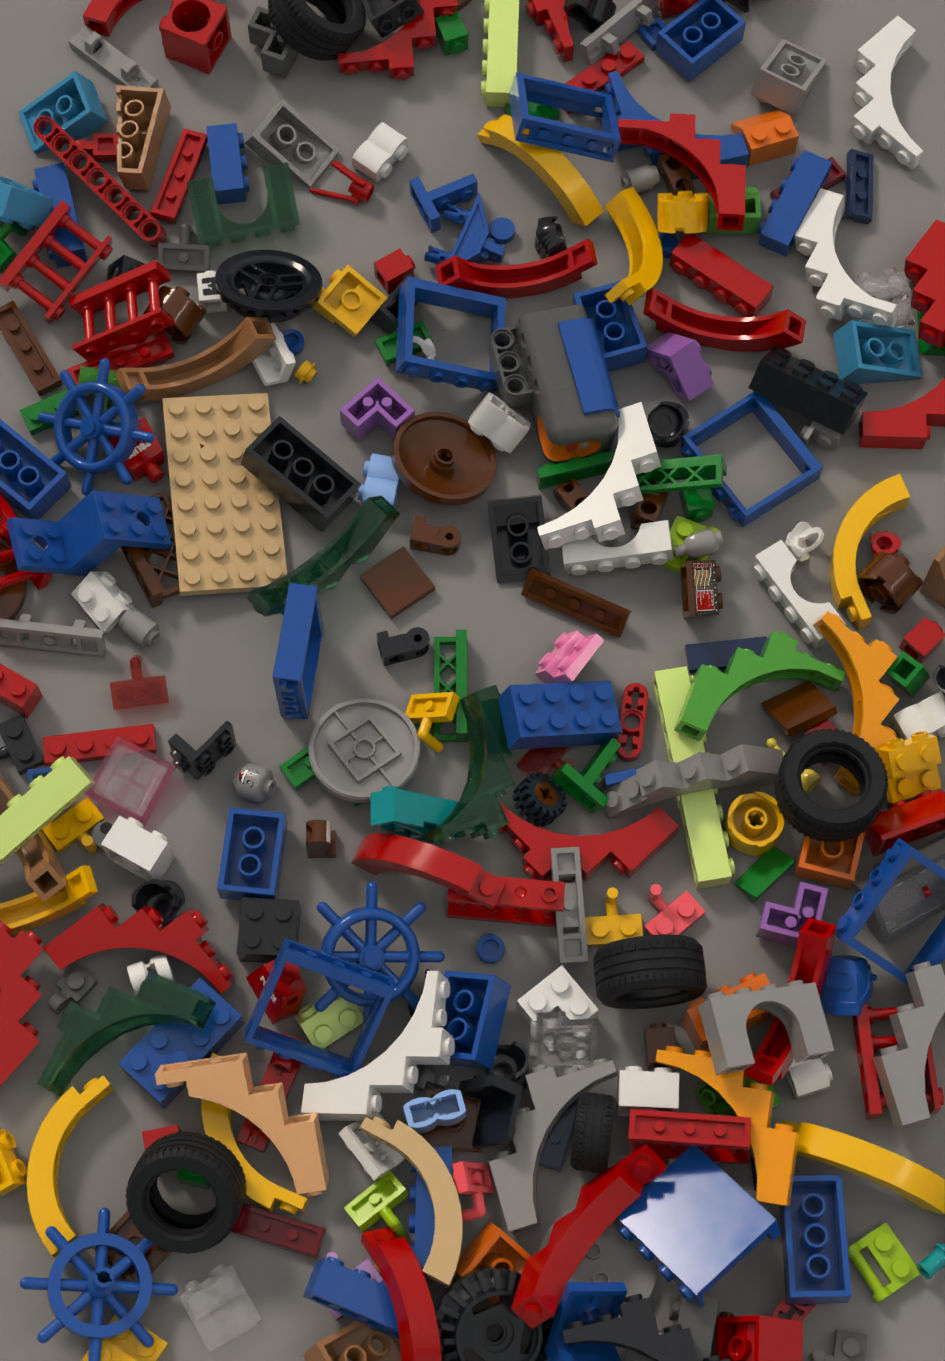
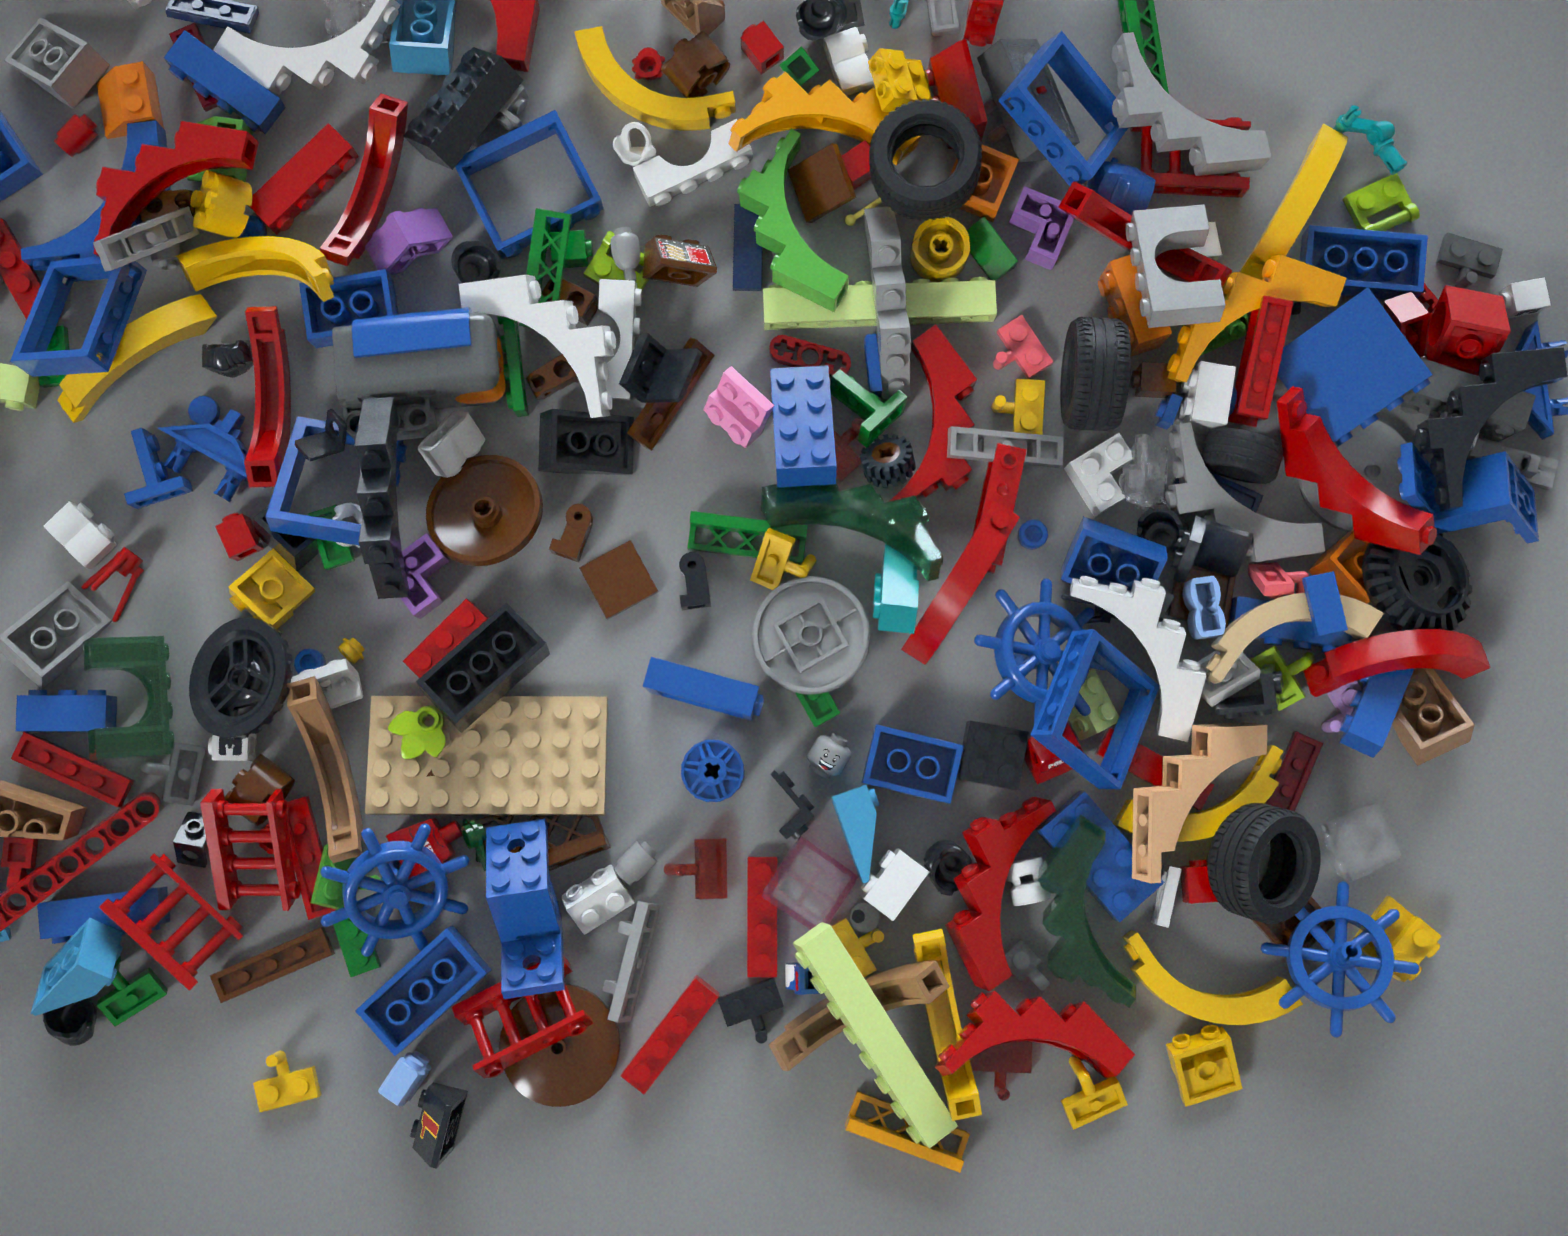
camera: 85 degrees left, 15 degrees up
(148, 1113) = (1166, 896): none -> white tile
(149, 485) = (474, 836): none -> dark green plate
(189, 811) = (858, 820): none -> dark azure slope
(225, 693) = (694, 769): none -> blue wheel
(235, 430) = (416, 735): none -> lime plate
(320, 839) = (902, 692): reddish brown leg -> none
(327, 441) = (445, 637): none -> red brick
(331, 562) = (595, 651): clear green arch -> none
(358, 1180) = (1261, 704): none -> black bracket
(380, 479) = (502, 582): light blue brick -> none
(437, 352) = (378, 497): none -> black arch
(449, 1220) = (1324, 604): none -> blue tile
(482, 317) = (326, 442): none -> black bracket
(591, 581) = (658, 372): none -> black bracket
(630, 1058) = (1168, 410): none -> blue plate
(637, 154) = (145, 238): none -> light grey hinge
(727, 99) = (76, 134): none -> red brick
(751, 1287) = (1410, 319): none -> red brick

